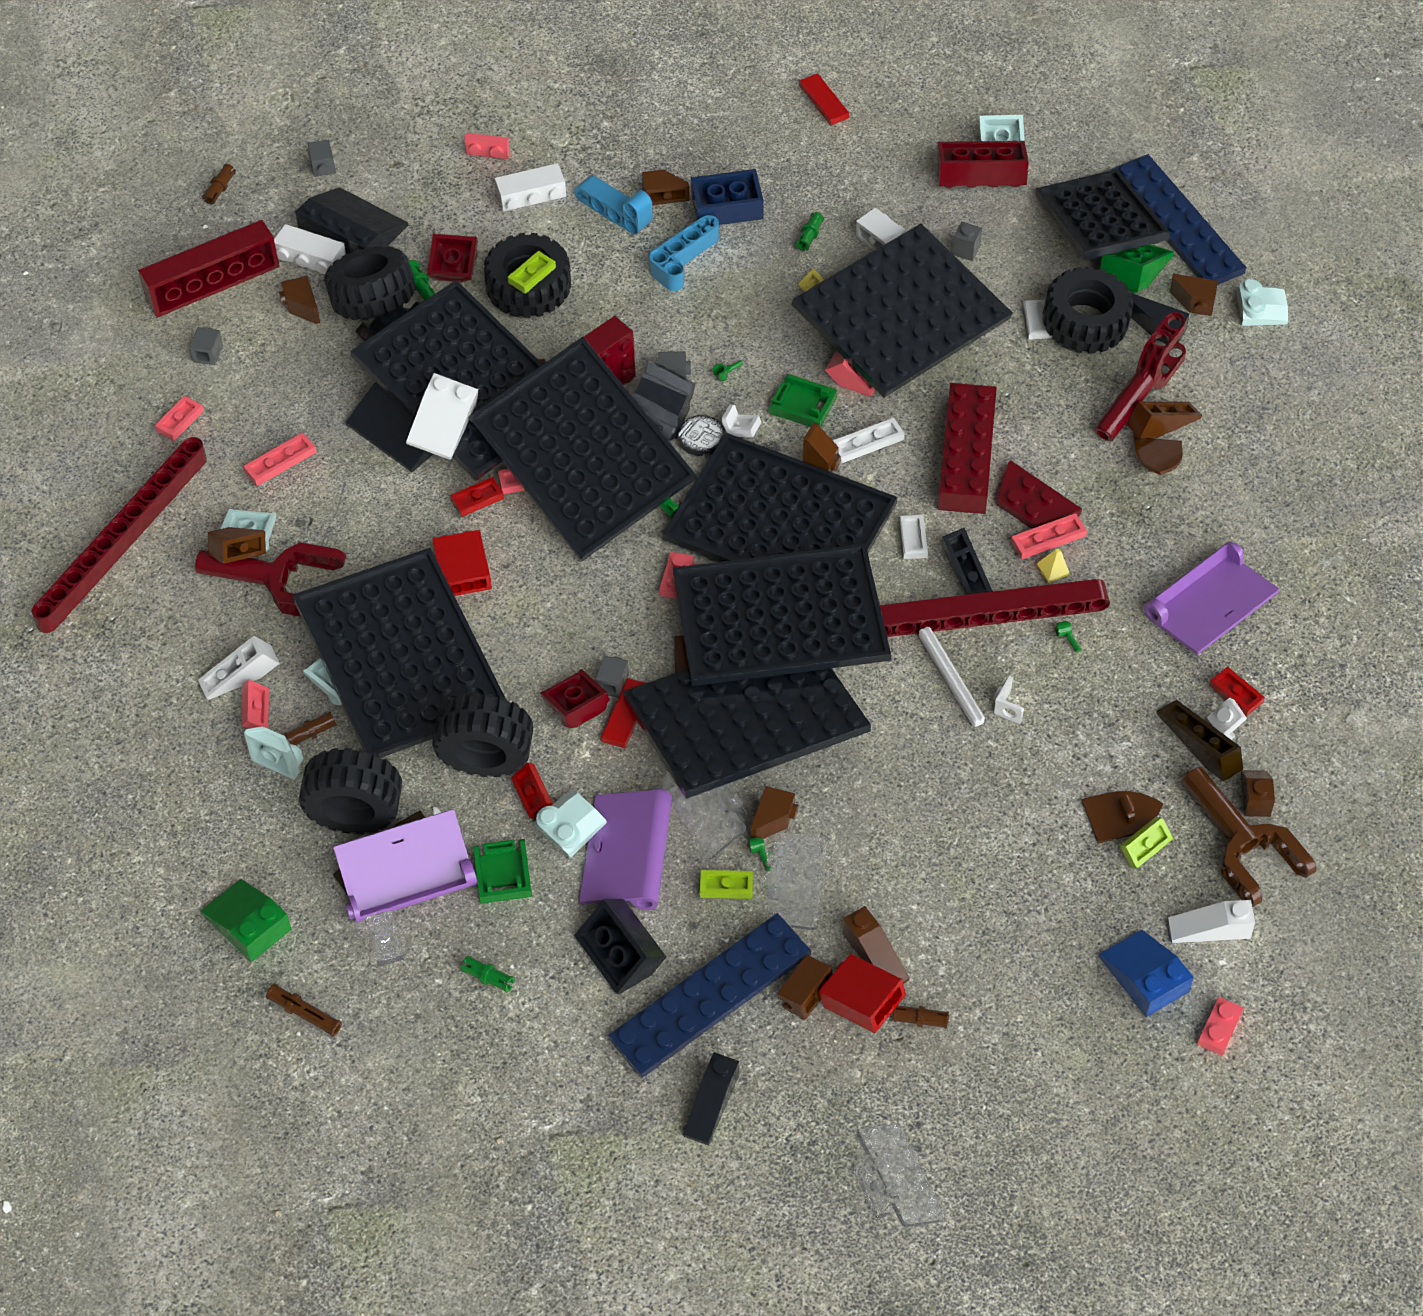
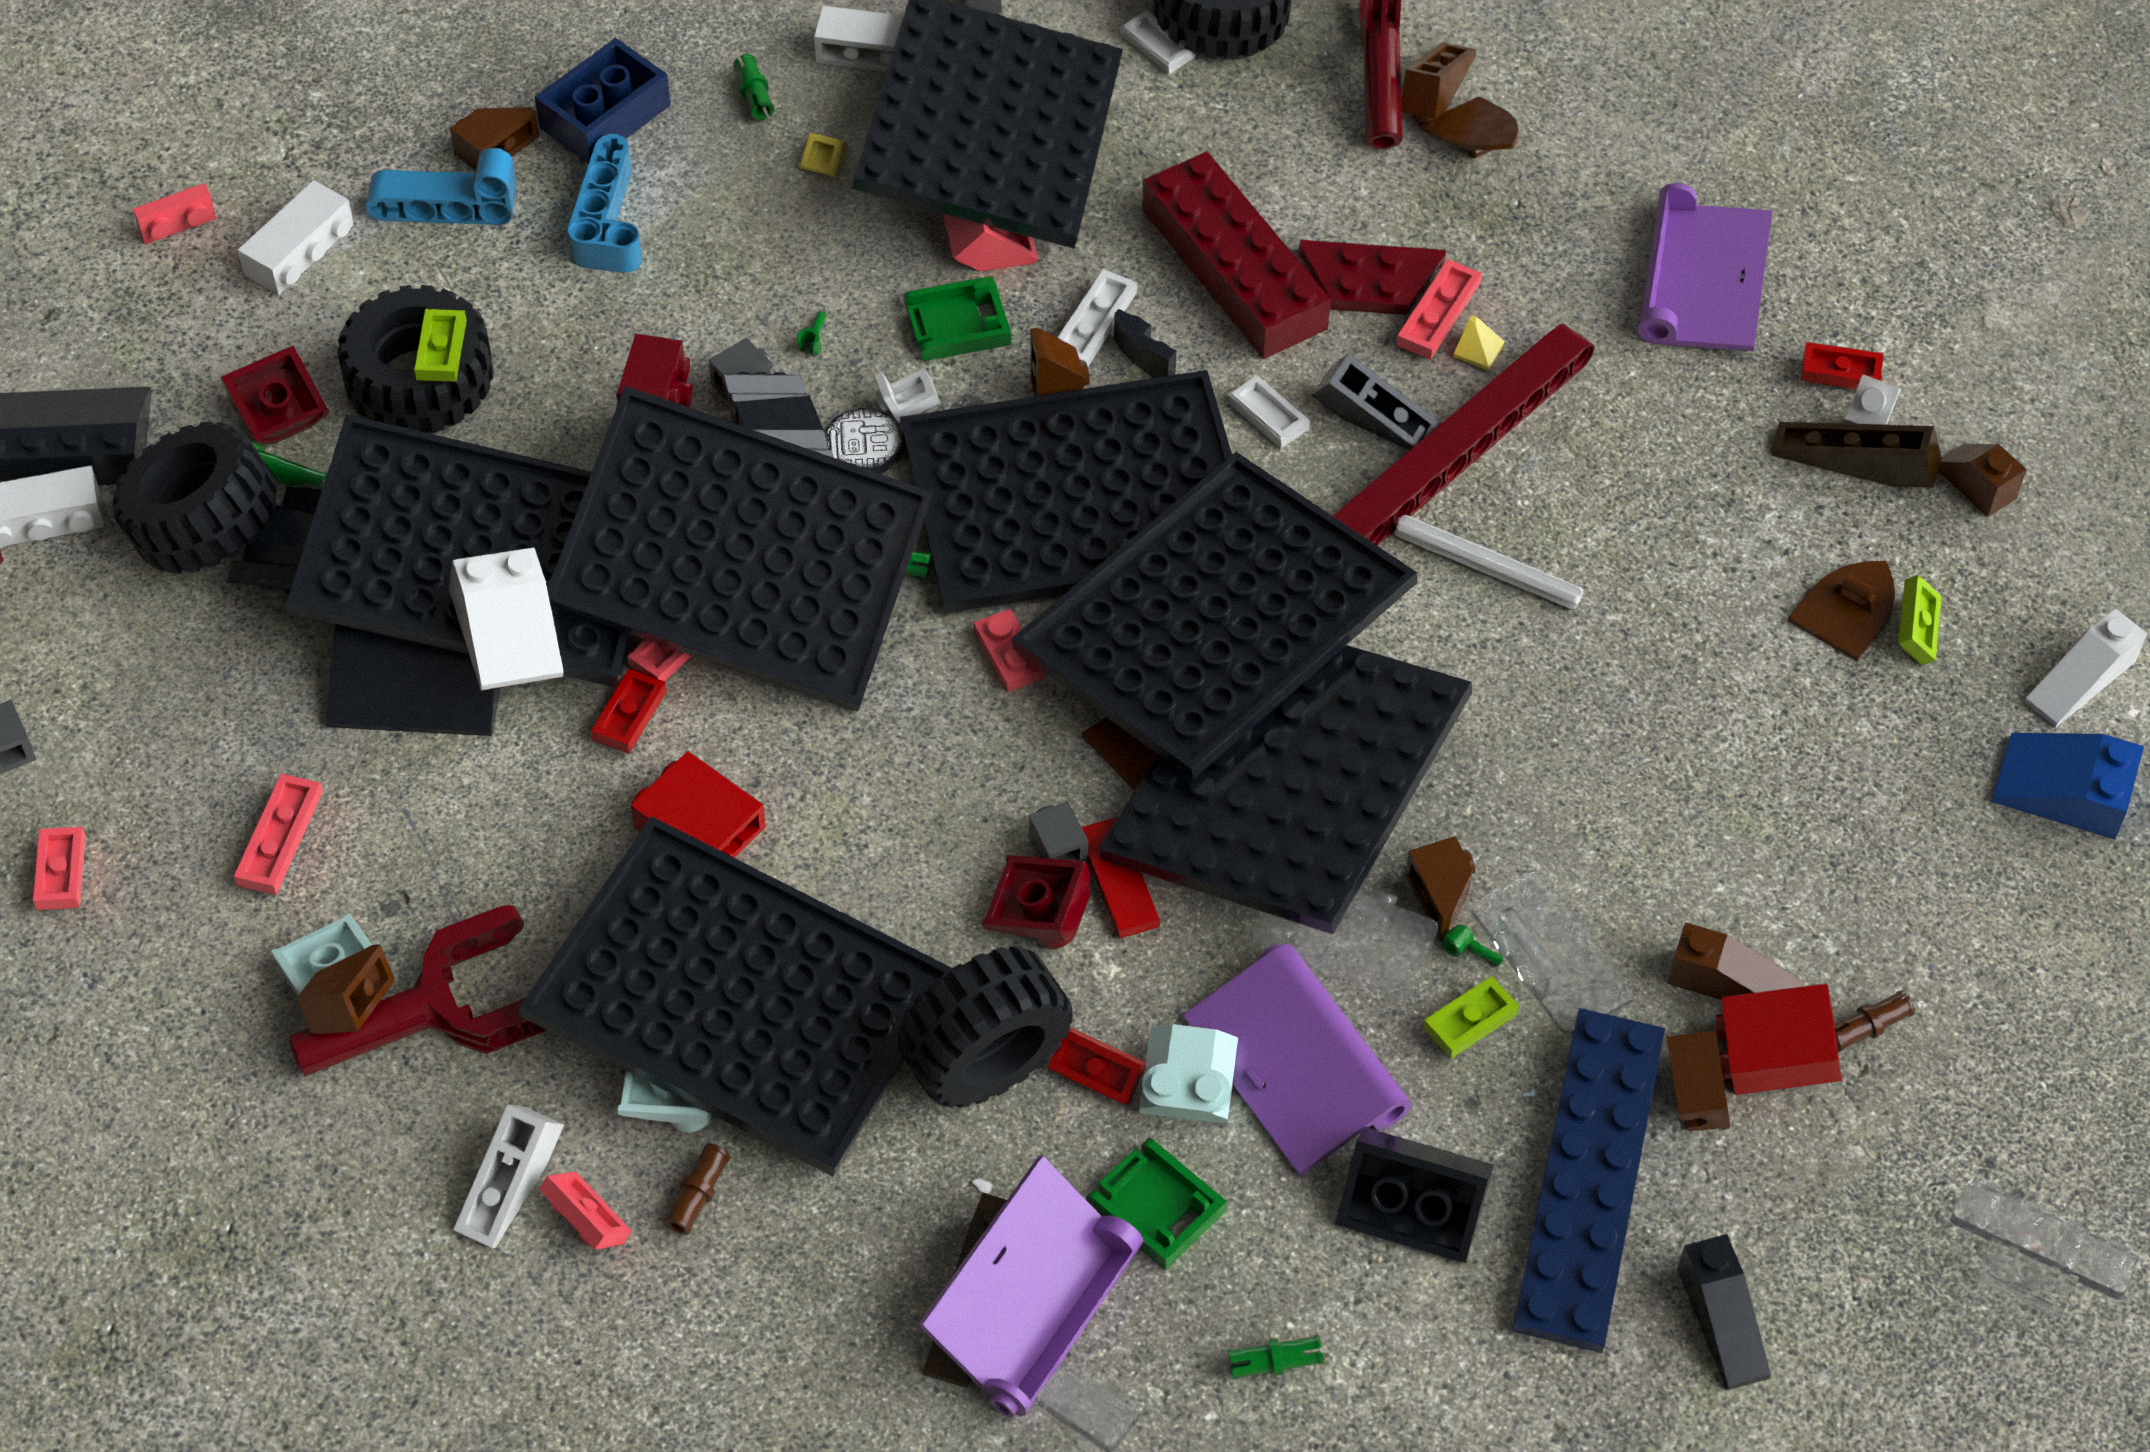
camera: 40 degrees left, 0 degrees up
(119, 535) = (130, 1109): dark red beam -> none
(273, 751) = (684, 1254): light aqua slope -> none
(300, 299) = (92, 585): reddish brown slope -> none
(350, 791) = (872, 1229): black tyre -> none
(878, 466) = (1135, 341): none -> black slope
(1001, 703) = (1586, 557): white bracket -> none
(1064, 629) = (1571, 414): green hand -> none
(1244, 837) = (2020, 540): reddish brown piece -> none

